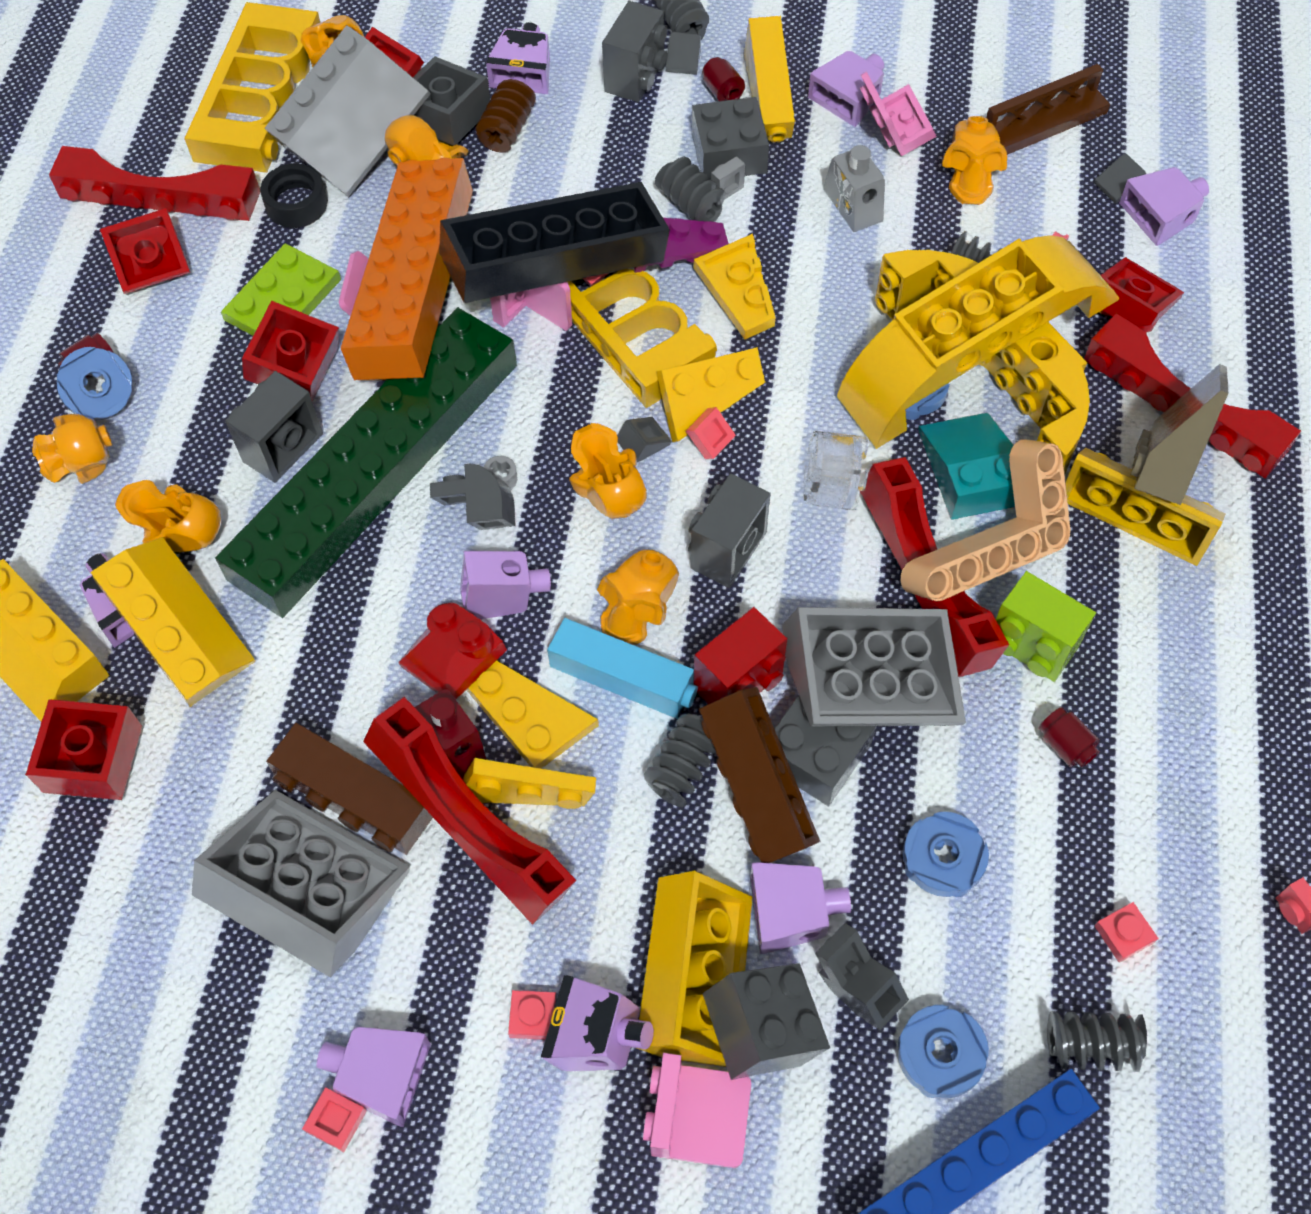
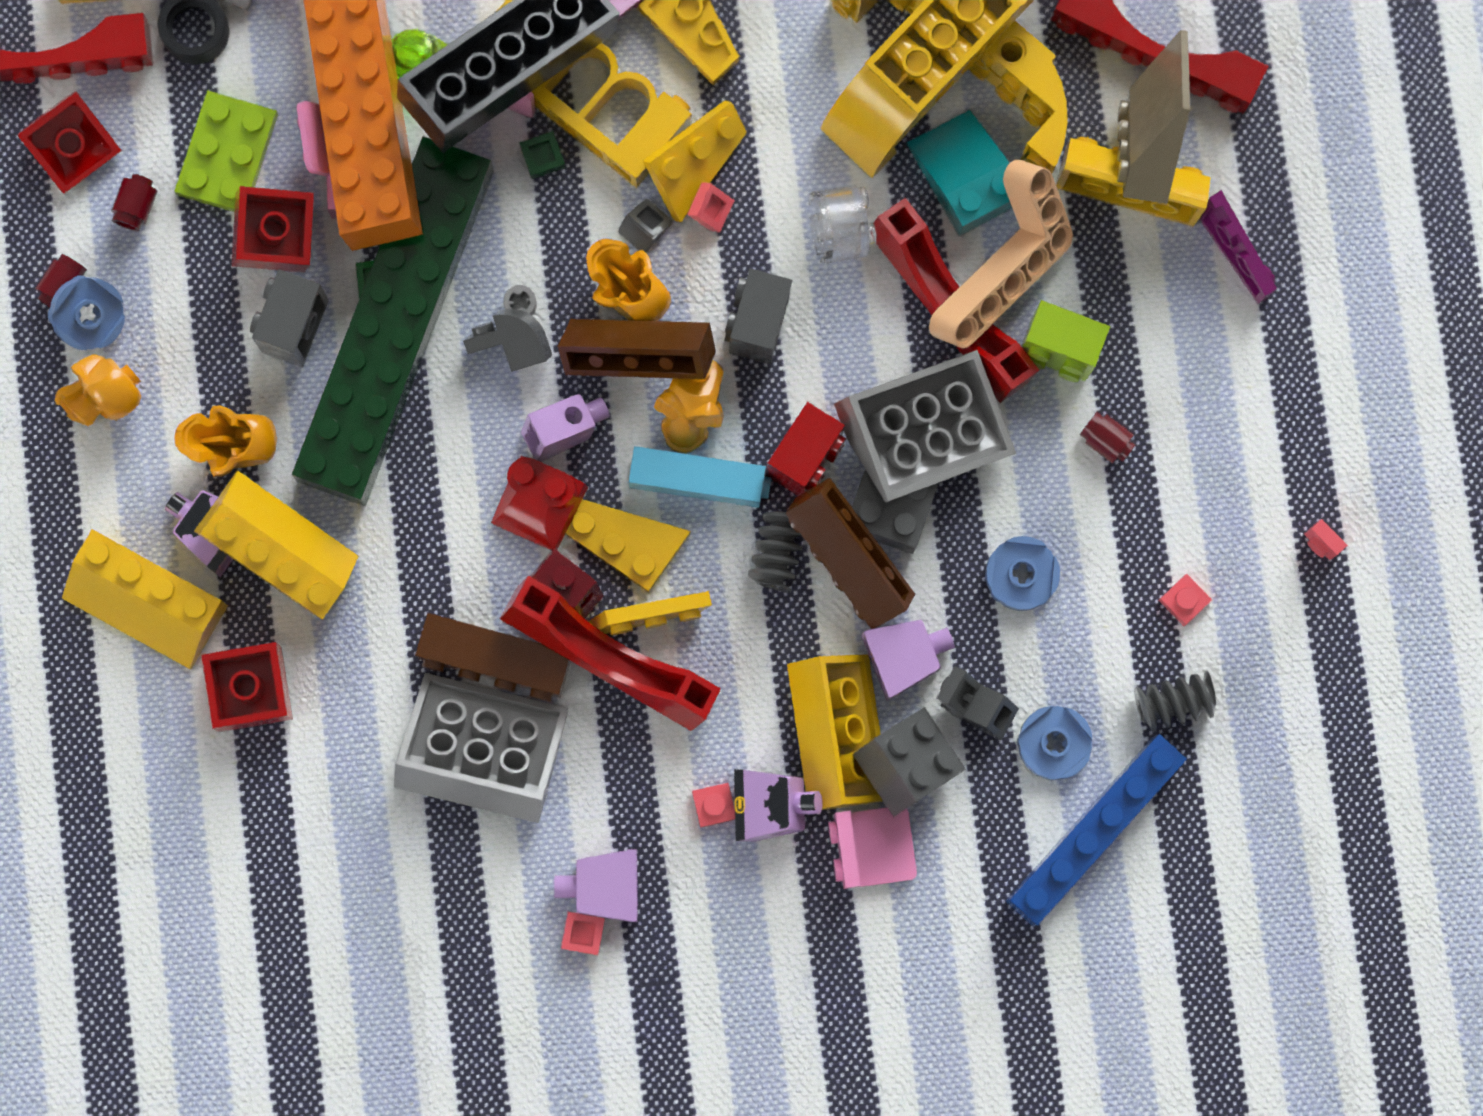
camera: 25 degrees left, 20 degrees up
(180, 311) = (133, 202): none -> dark red brick
(565, 357) = (542, 155): none -> dark green plate
(597, 526) = (637, 348): none -> reddish brown brick
(1242, 584) = (1237, 248): none -> magenta wing

